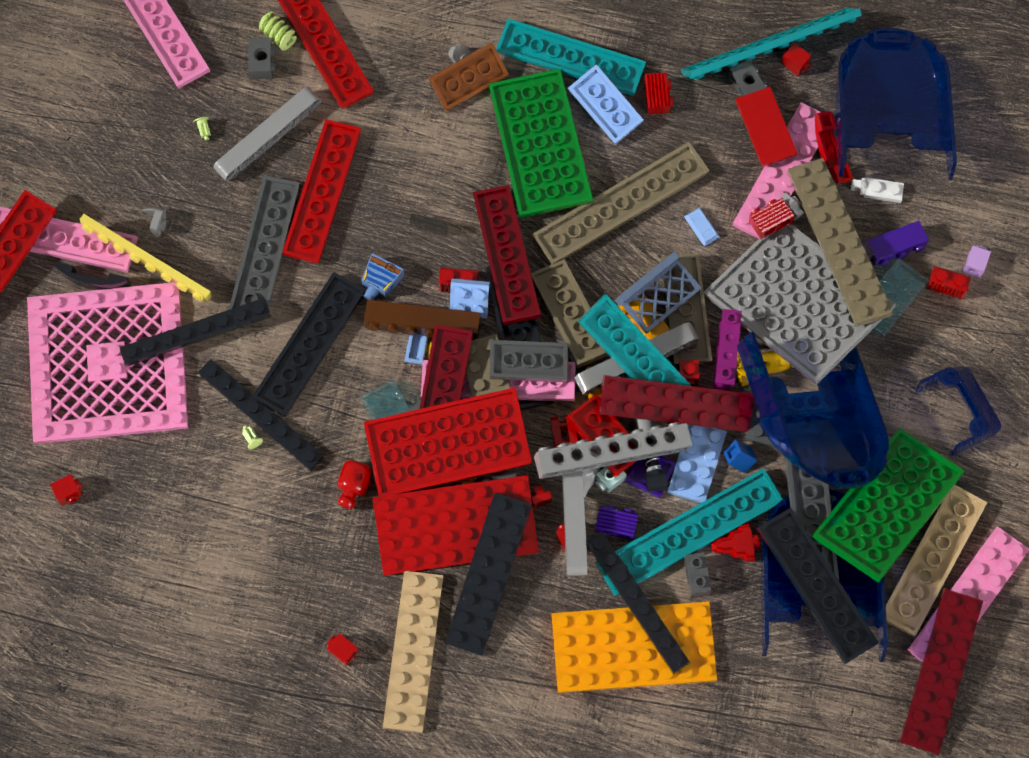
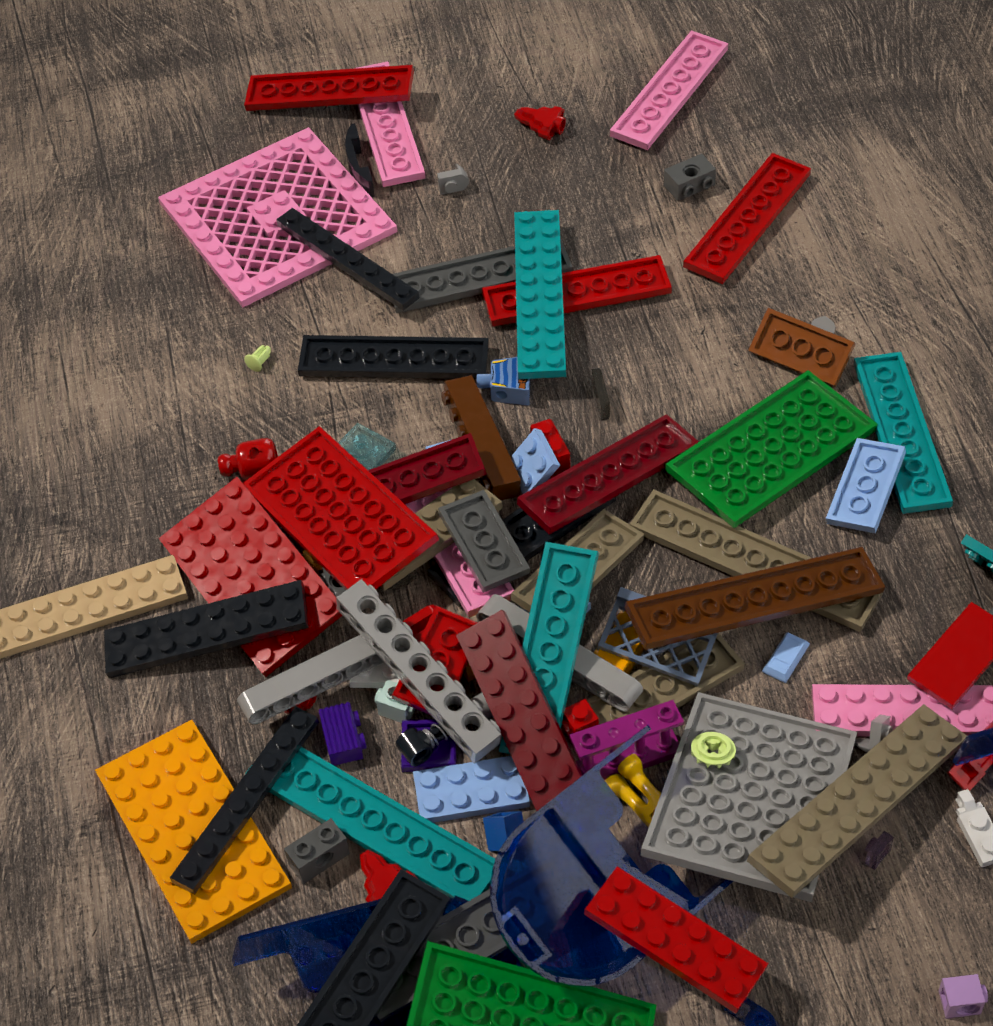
camera: 65 degrees right, 20 degrees down
(67, 489) = (119, 241): red brick -> none
(133, 126) = (543, 120): none -> red rock
(150, 262) = (399, 191): light yellow plate -> none
(203, 127) = (581, 170): yellowish green piece -> none
(260, 415) = (287, 357): black plate -> none
(267, 134) = (614, 220): light grey beam -> none
(277, 31) = (730, 175): yellowish green piece -> none
(316, 216) = (539, 295): none -> teal plate
(341, 649) = (51, 538): red brick -> none
(541, 498) = (329, 640): red tile -> none
(657, 93) = (921, 531): red brick -> none
(667, 221) = (753, 597): none -> reddish brown plate
(752, 308) = (713, 741): none -> yellowish green gear
(771, 218) = (841, 714): red brick -> none
(880, 394) = (676, 939): none -> red plate
(898, 243) = (916, 883): dark purple brick -> none
(901, 286) = (840, 915): clear light blue plate -> none
(948, 282) = (905, 972): red brick -> none

